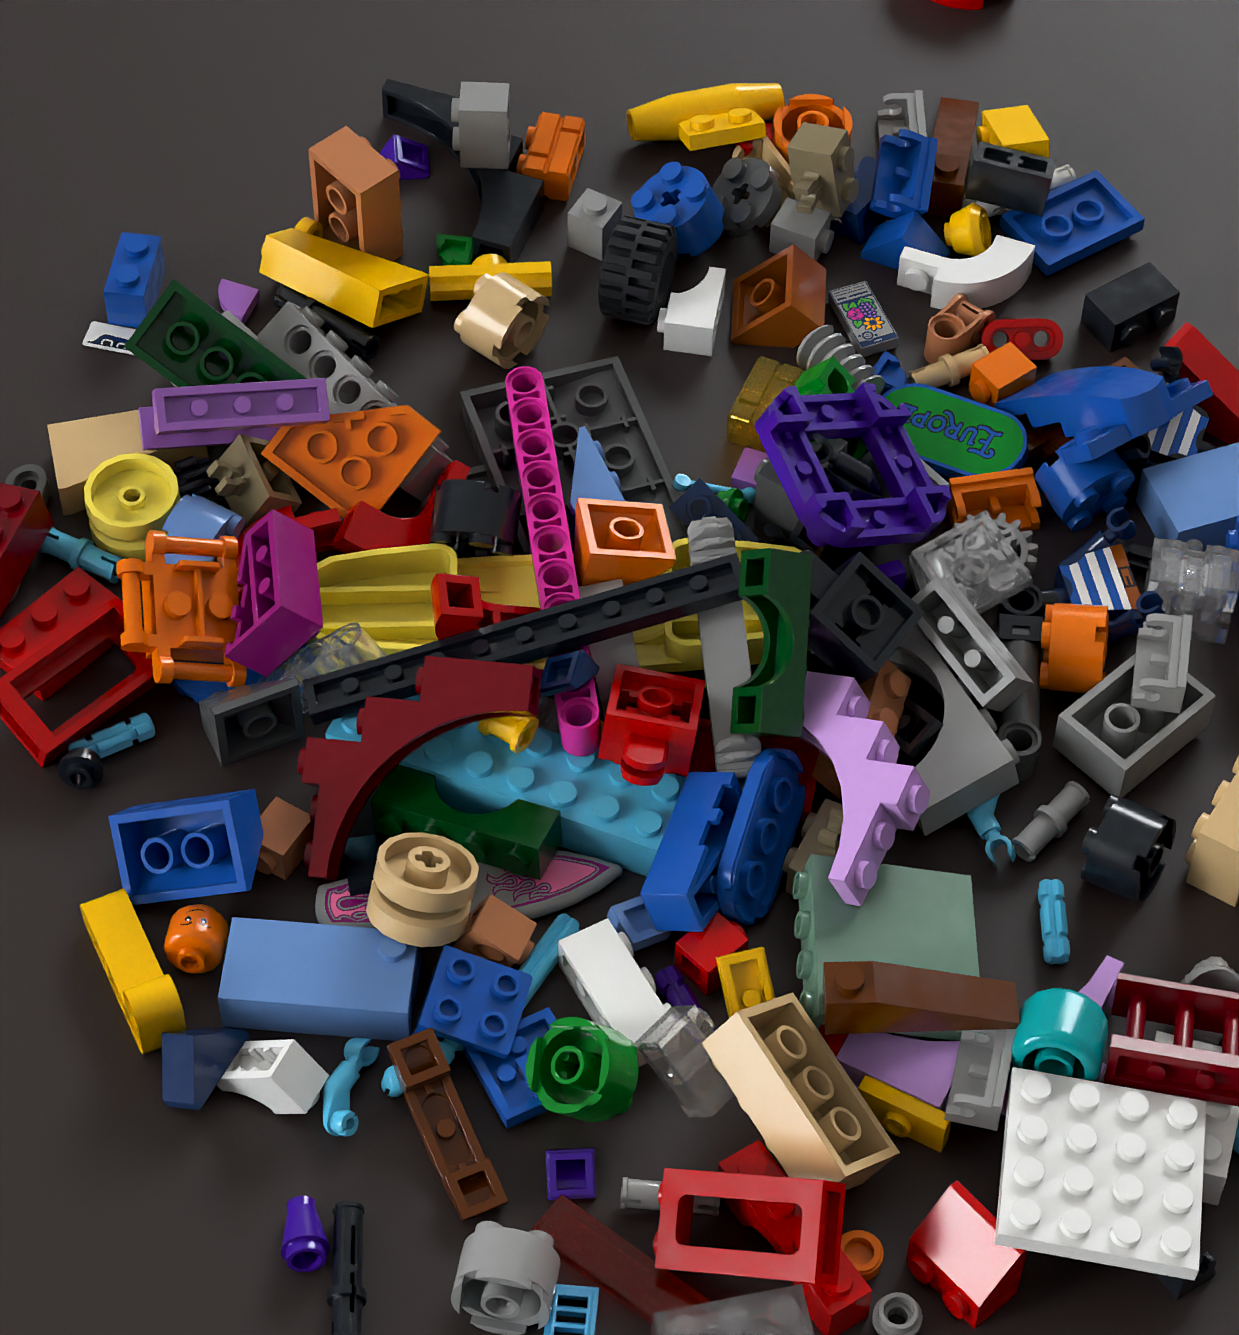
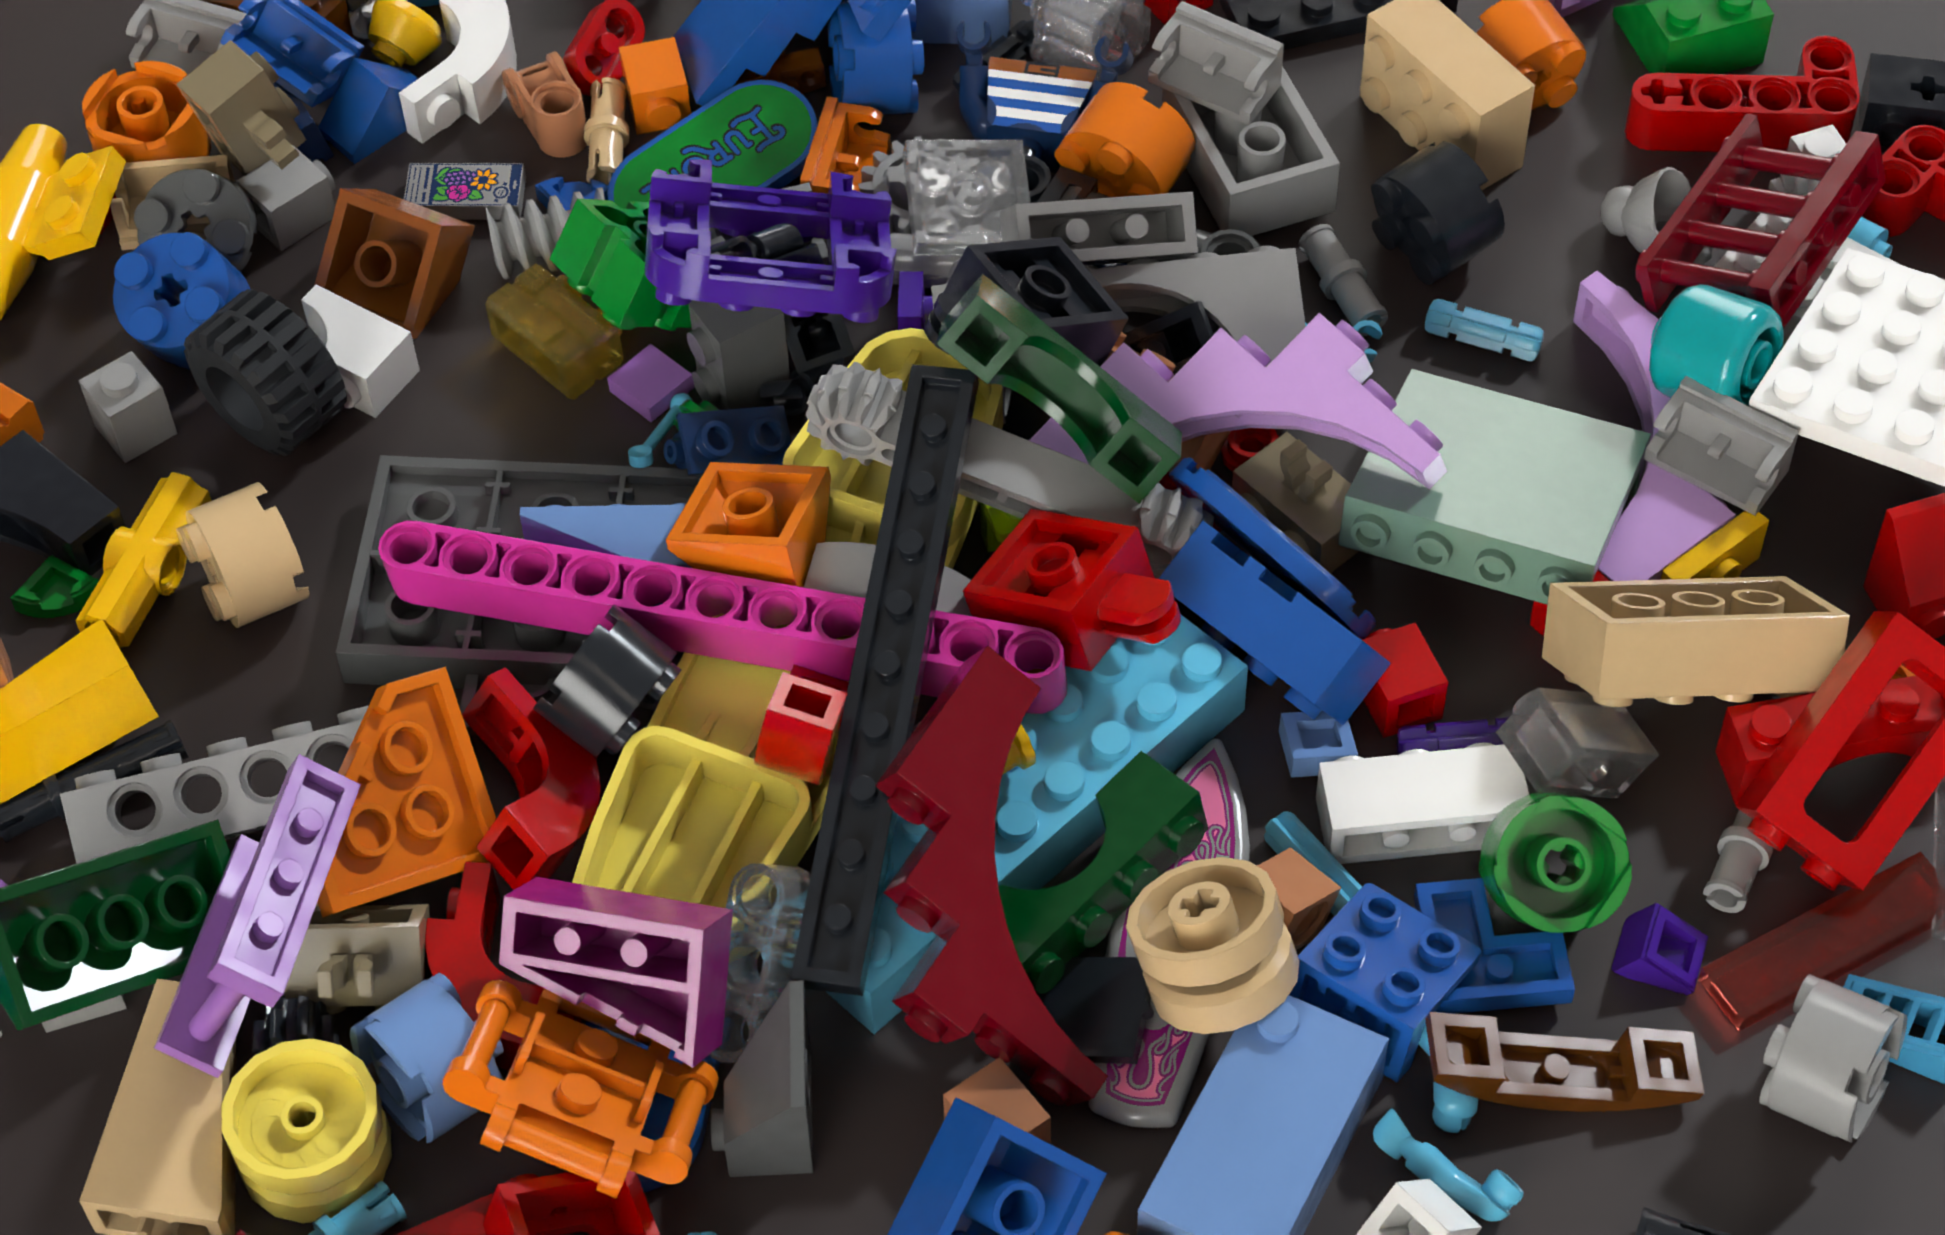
camera: 65 degrees left, 0 degrees up
(567, 672) = (966, 633): dark blue slope -> none
(745, 979) = (1487, 654): yellow plate -> none
(912, 999) = (1626, 461): reddish brown slope -> none

